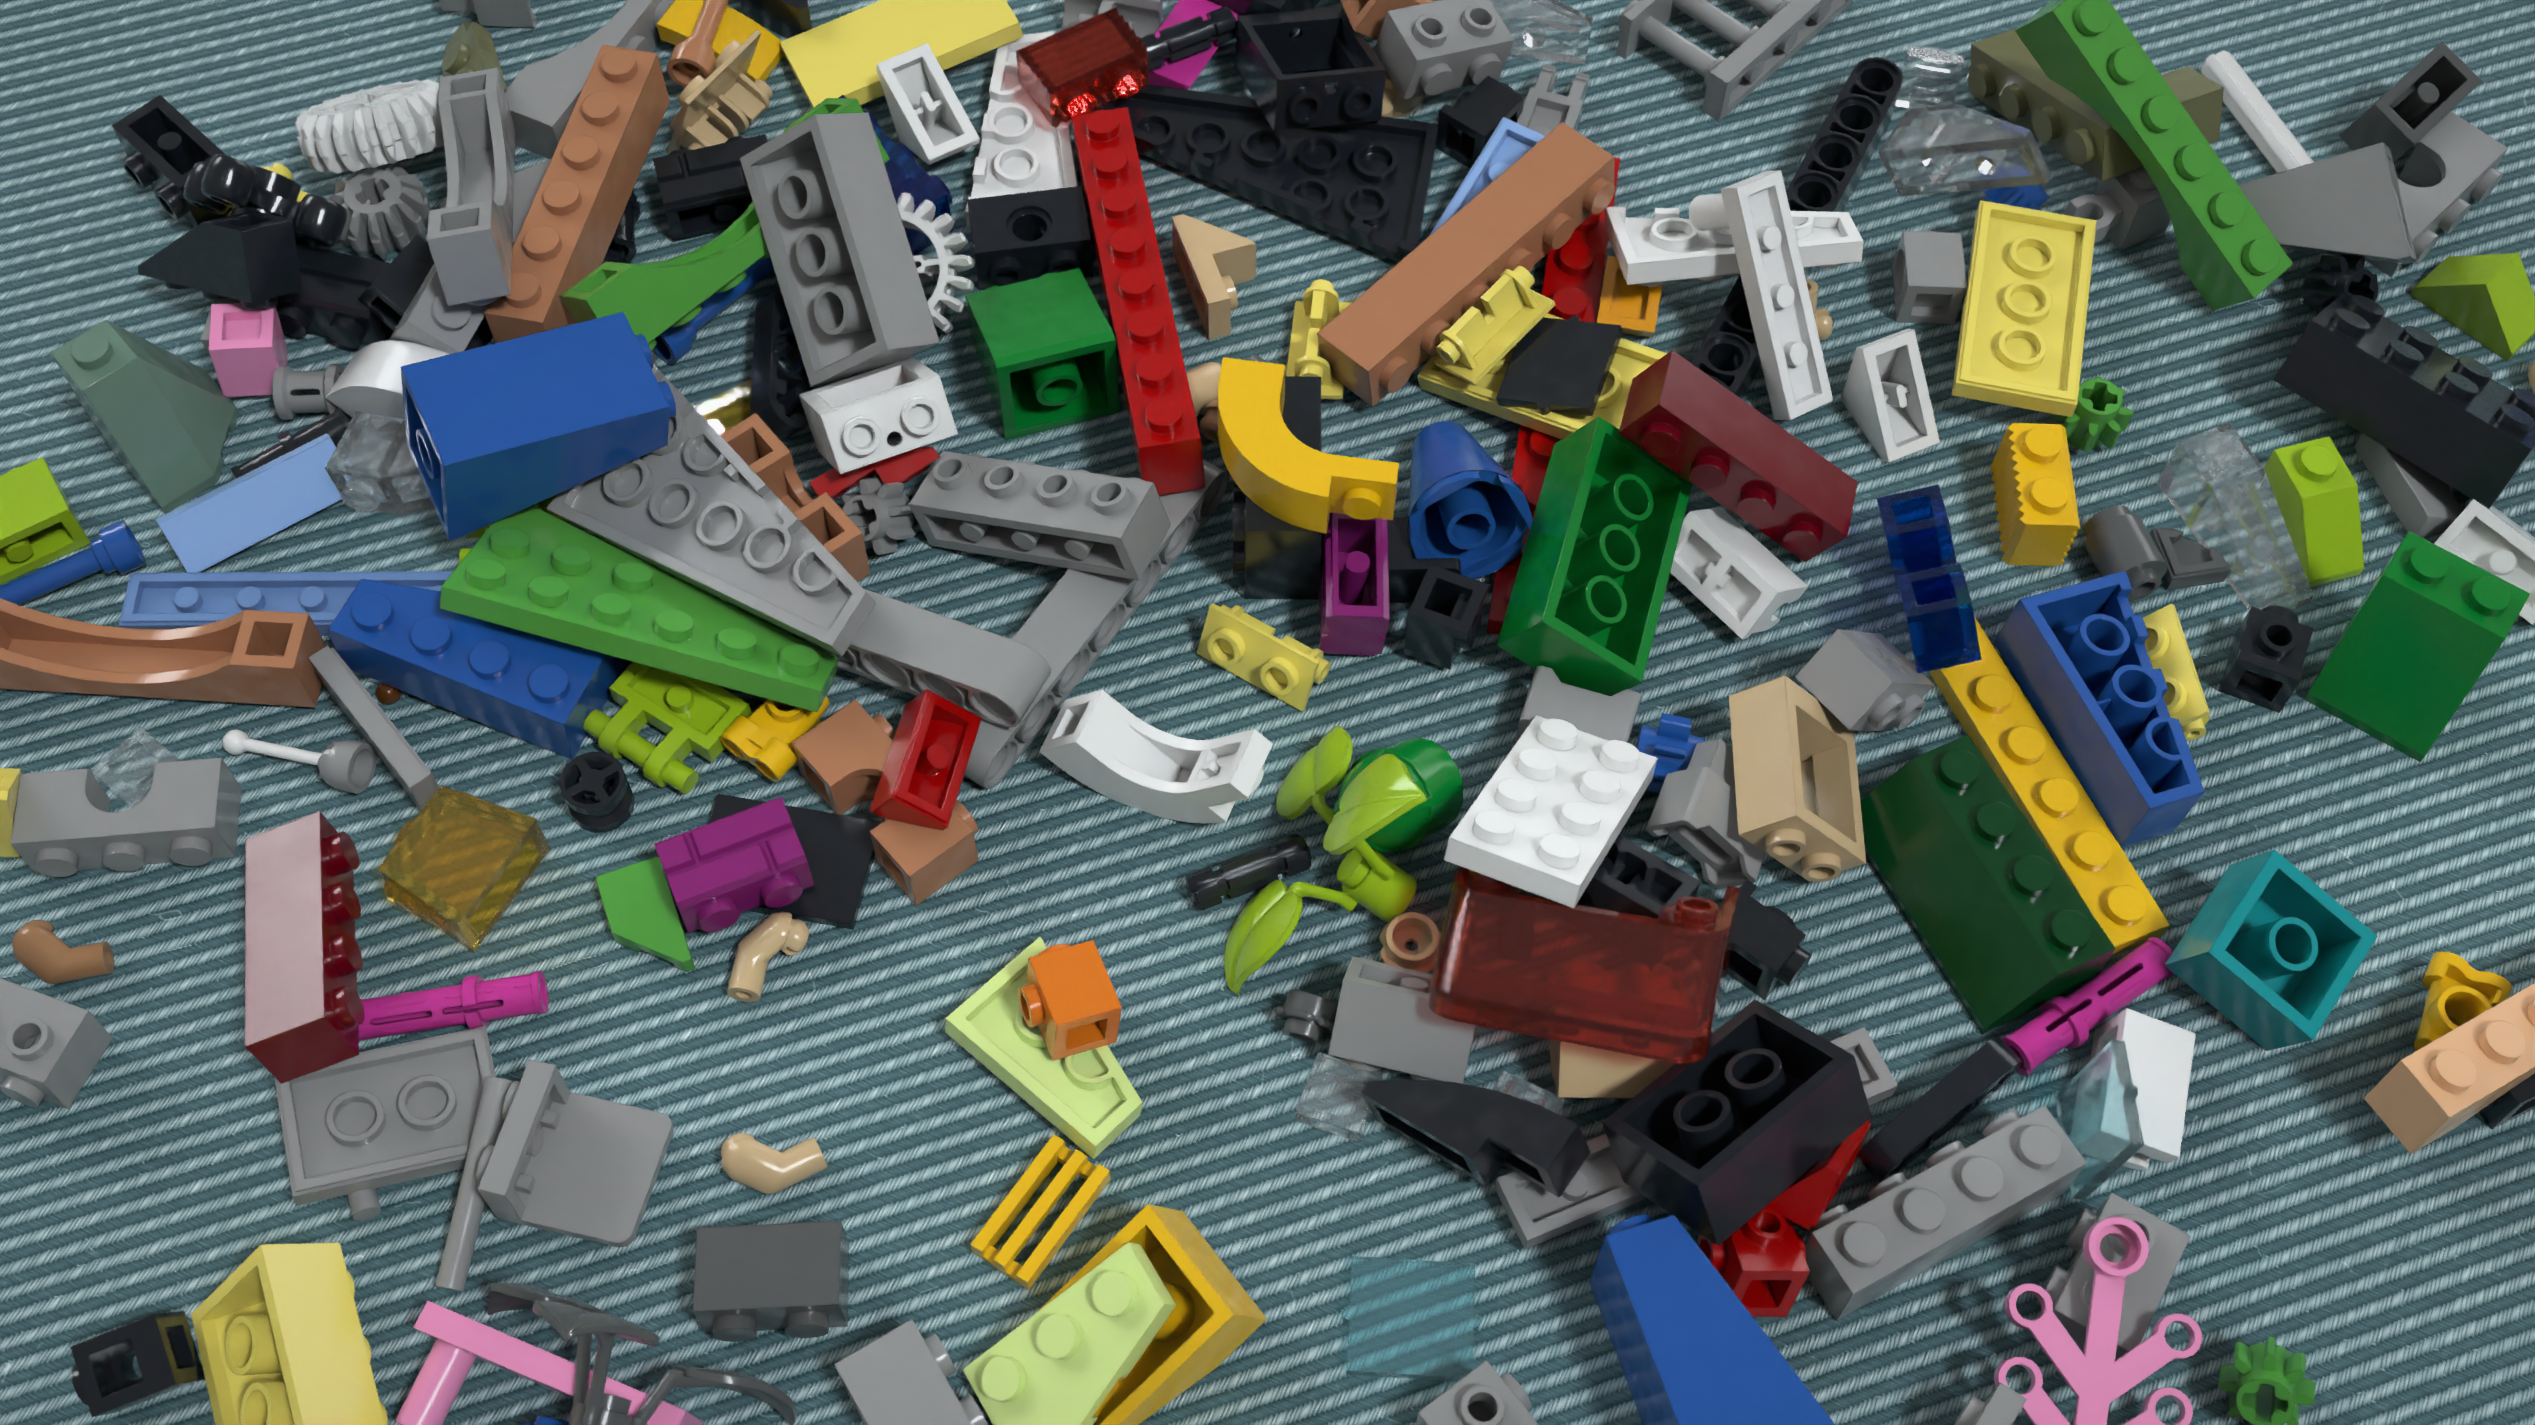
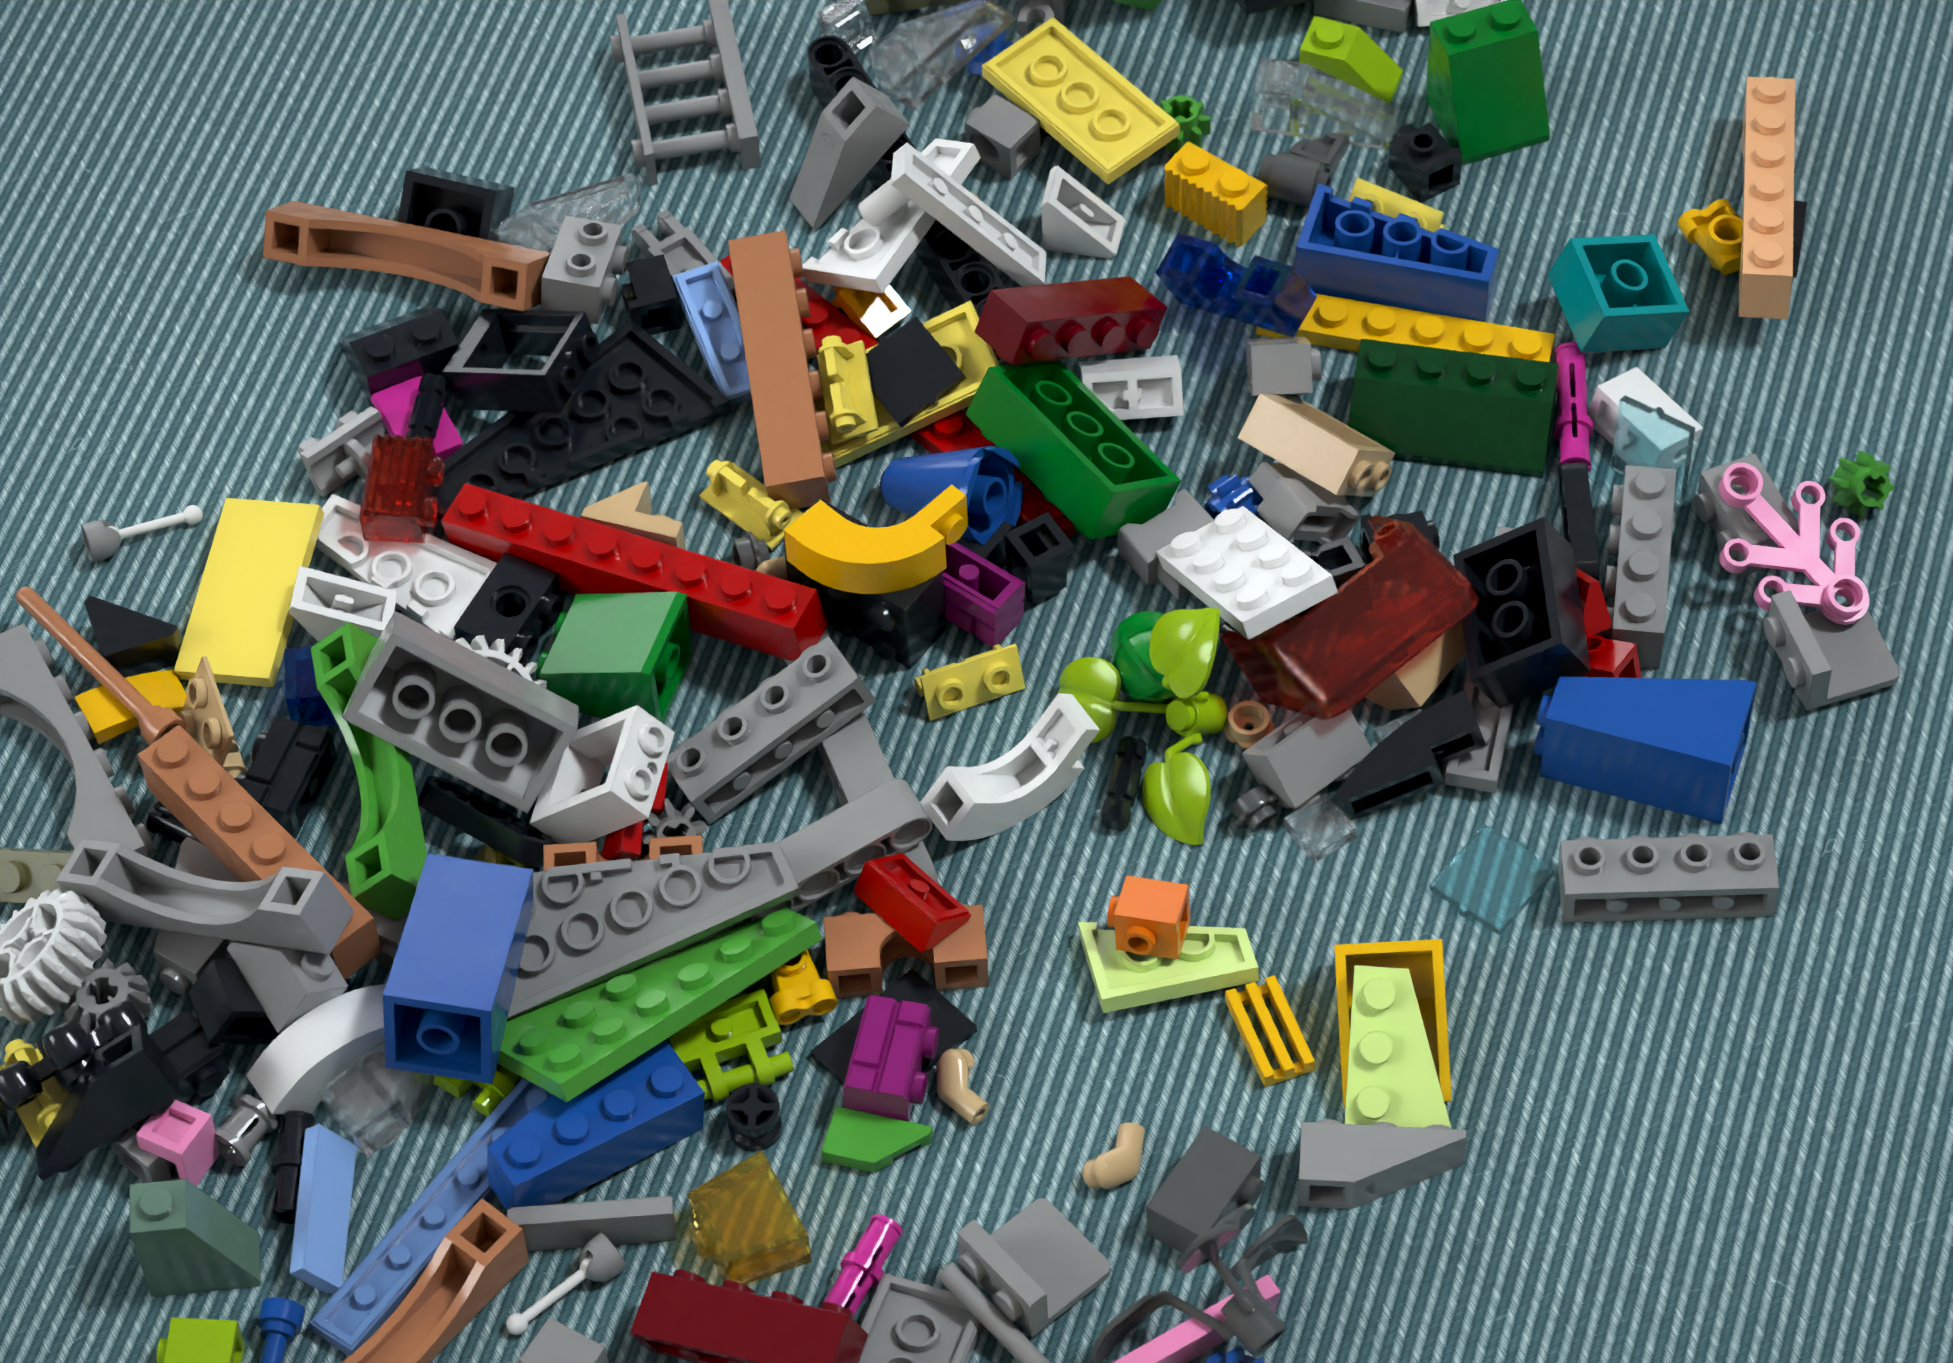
camera: 50 degrees left, 5 degrees down
(1791, 134) = (844, 148): none -> light grey slope

